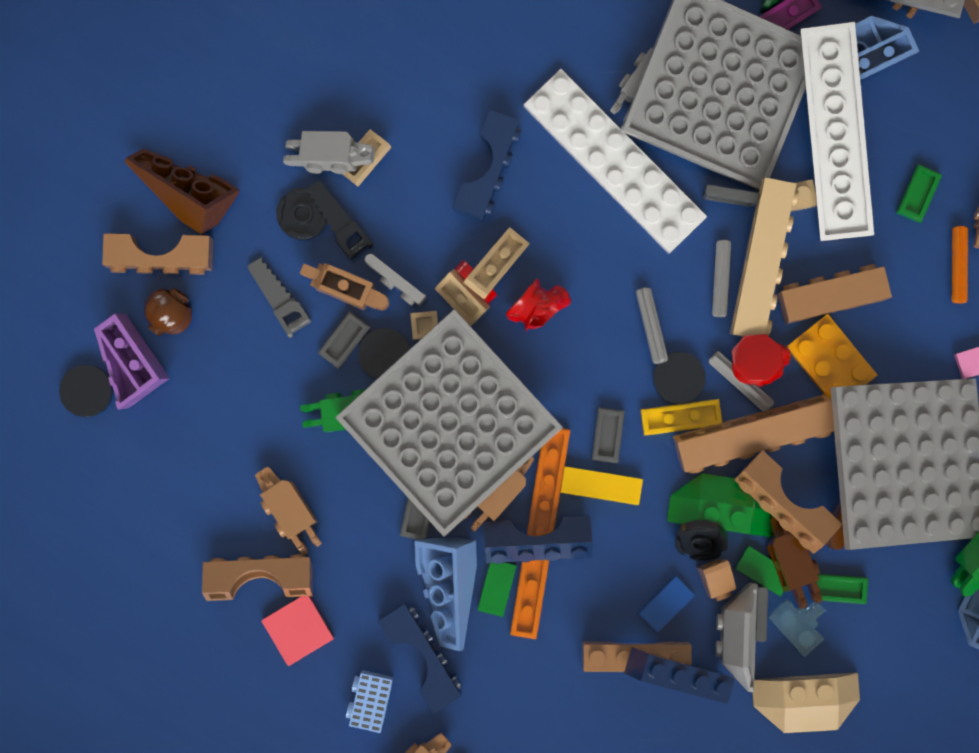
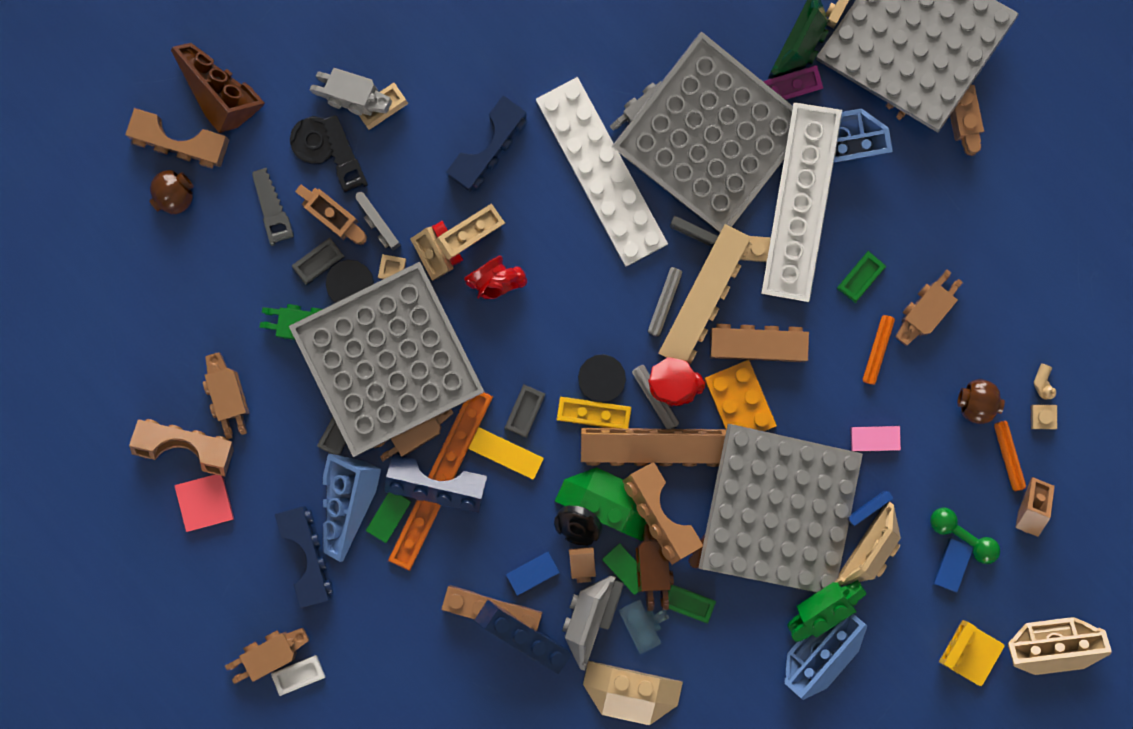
camera: 15 degrees right, 0 degrees up
(86, 391) = (80, 241): black tile -> none
(129, 361) = (125, 225): medium lavender wedge -> none
(370, 701) = (249, 582): light blue brick -> none
(651, 325) = (590, 325): light grey axle -> none

